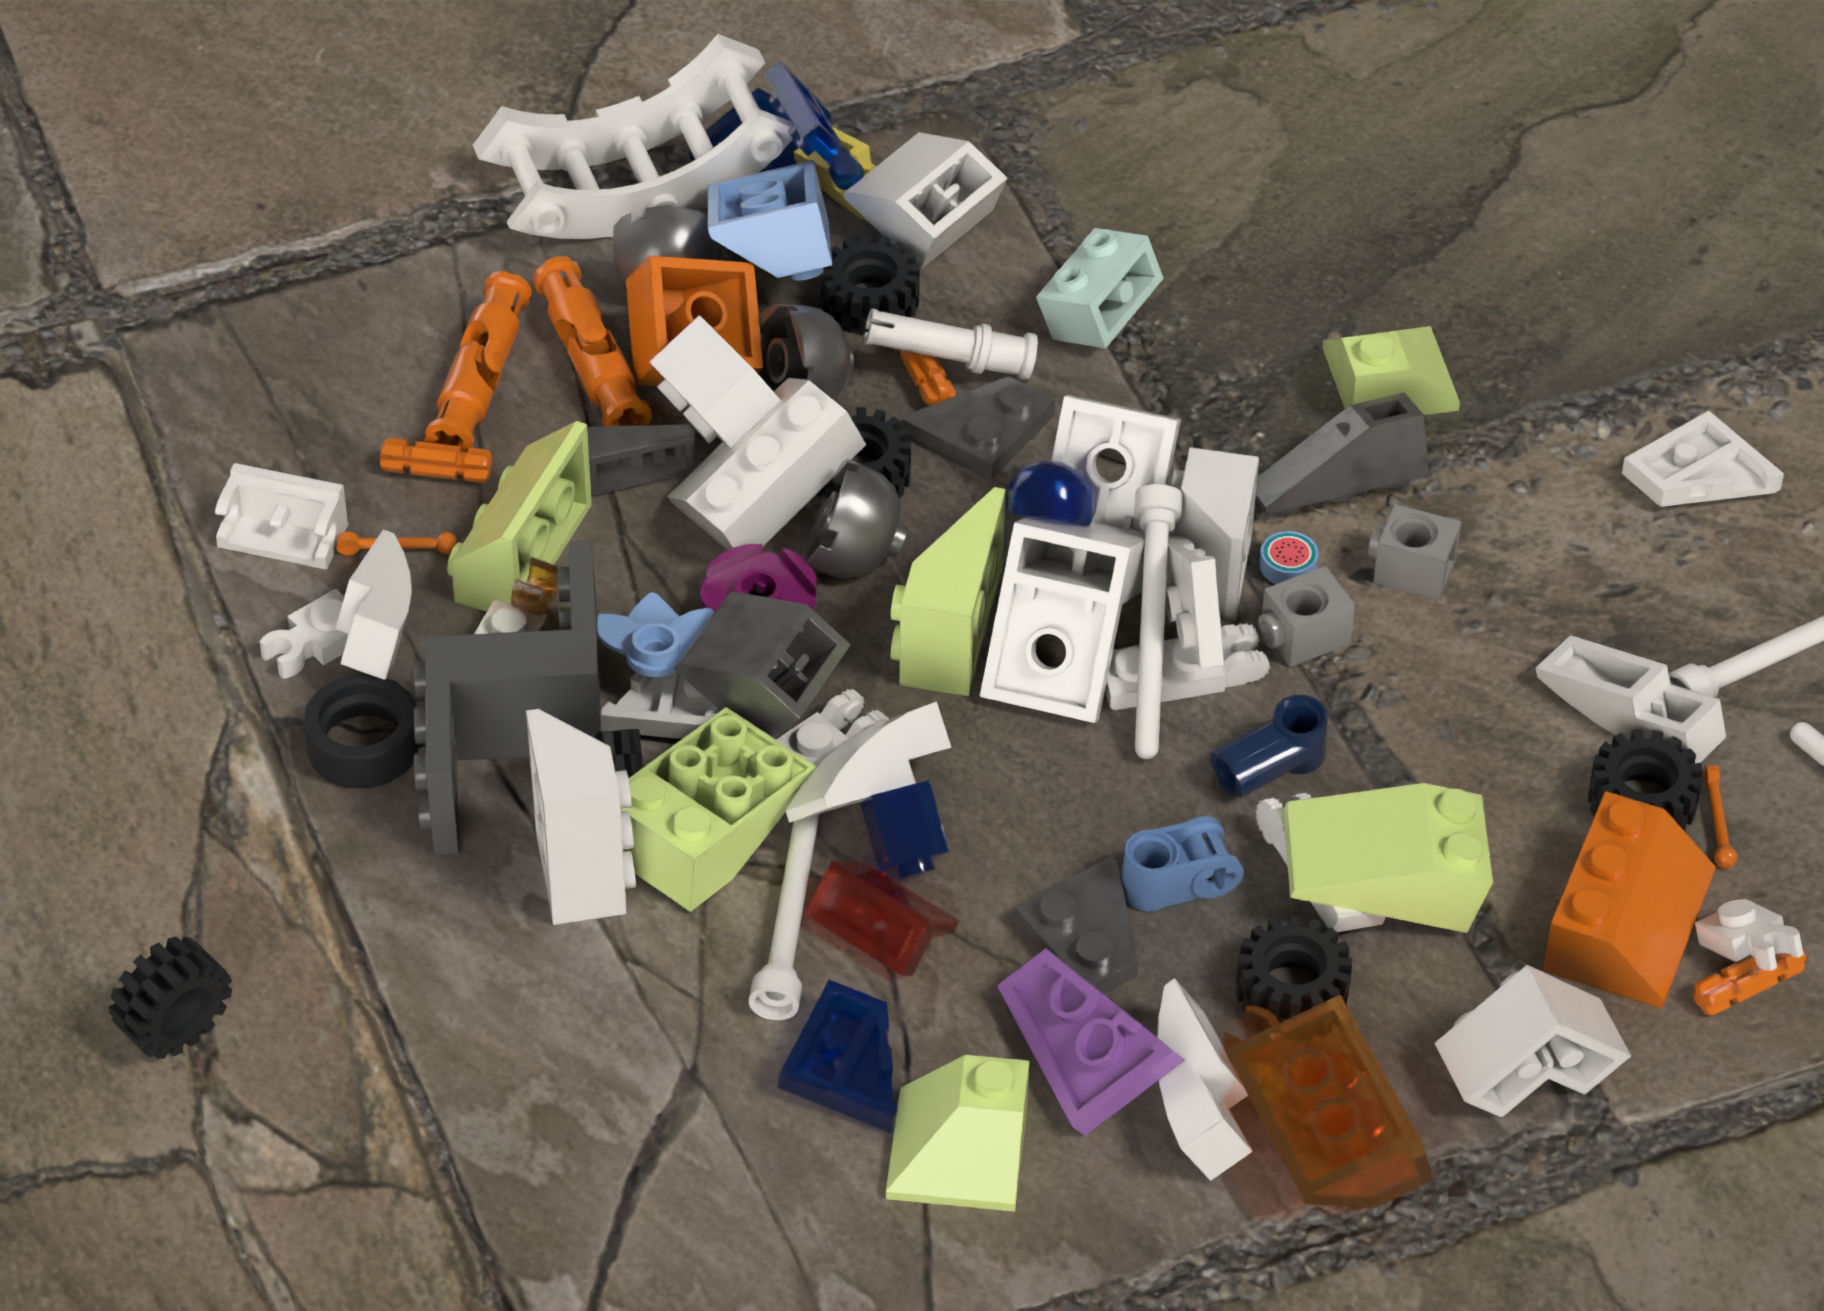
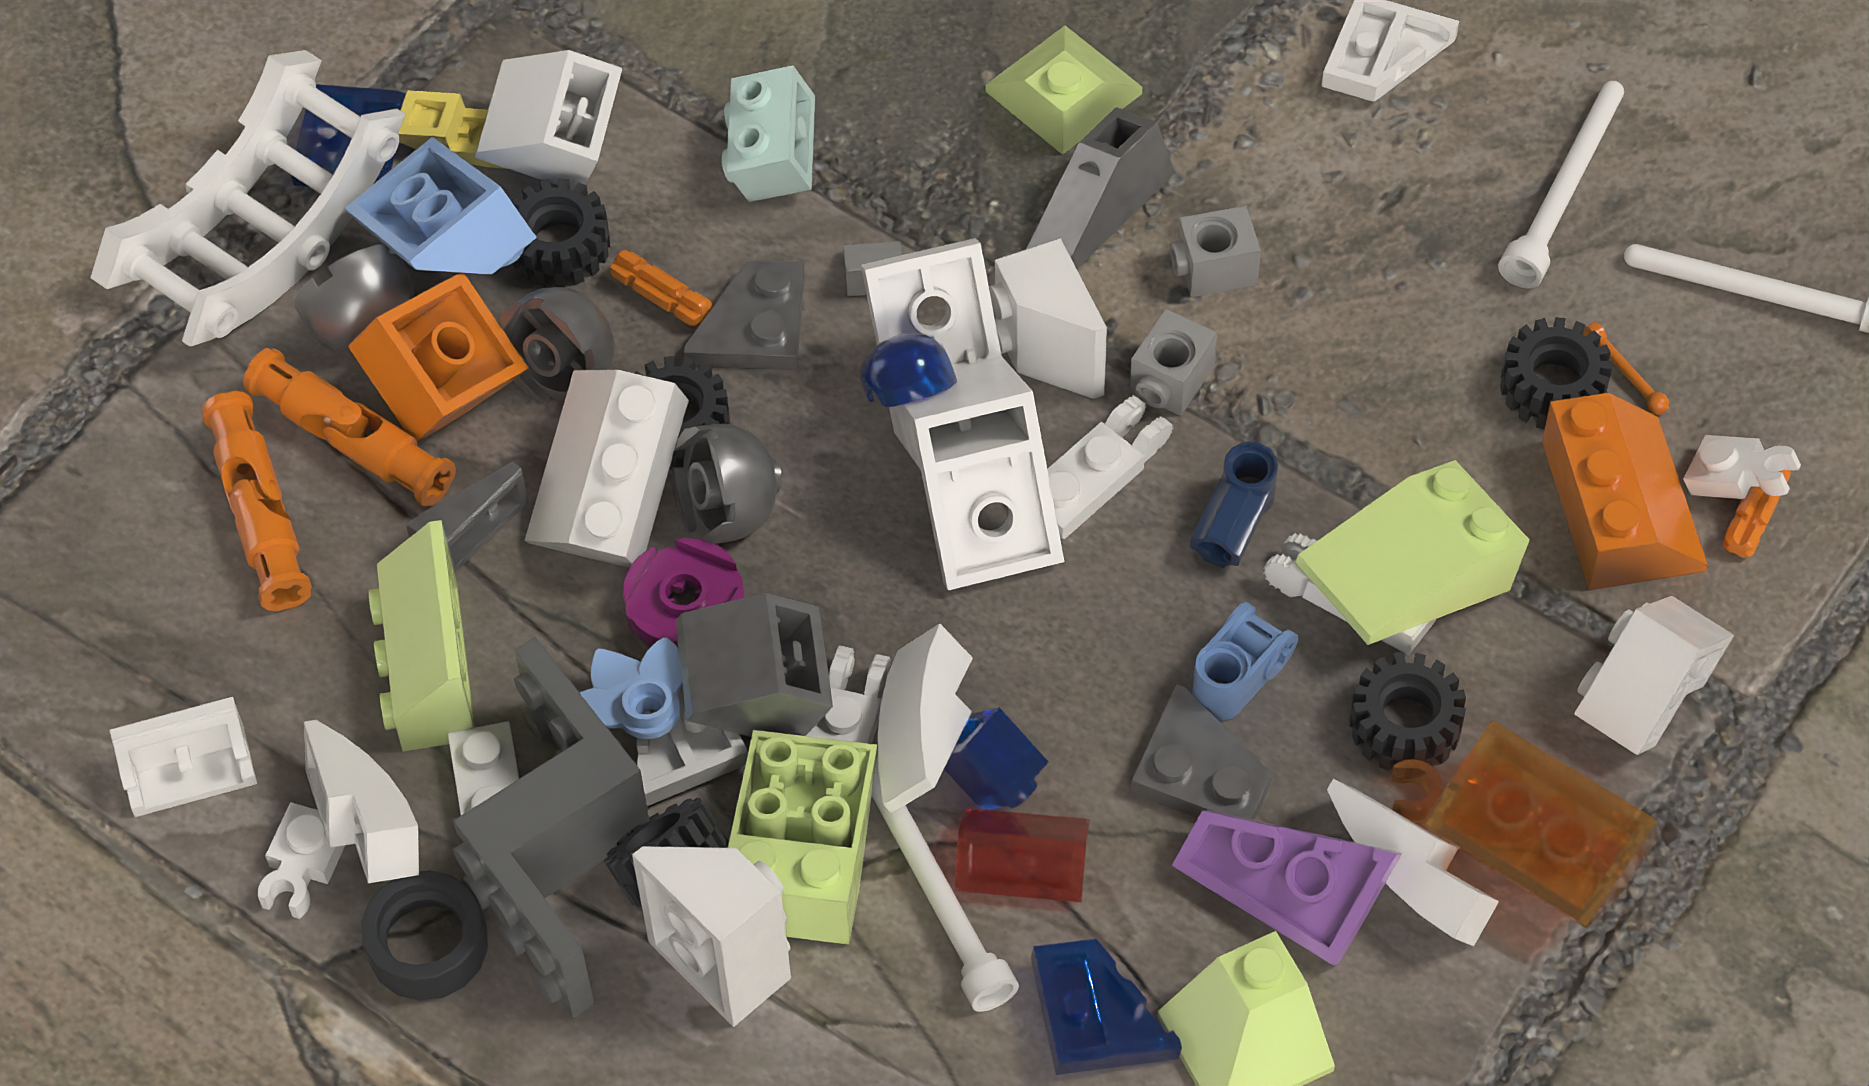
camera: 30 degrees left, 10 degrees up
(350, 543) = (265, 746): orange hinge -> none
(436, 460) = (285, 618): orange axle -> none
(539, 589) = (486, 702): clear orange piece -> none
(715, 382) = (520, 416): white brick -> none
(812, 125) = (420, 111): clear blue plate -> none
(950, 601) = (882, 528): yellowish green slope -> none
(977, 347) = (704, 249): white pin -> none
(1158, 510) = (1010, 339): white piece -> none
(1194, 600) = (1085, 399): white wing -> none
(1287, 556) = (1118, 309): tile -> none
(1632, 694) = (1484, 295): white slope -> none

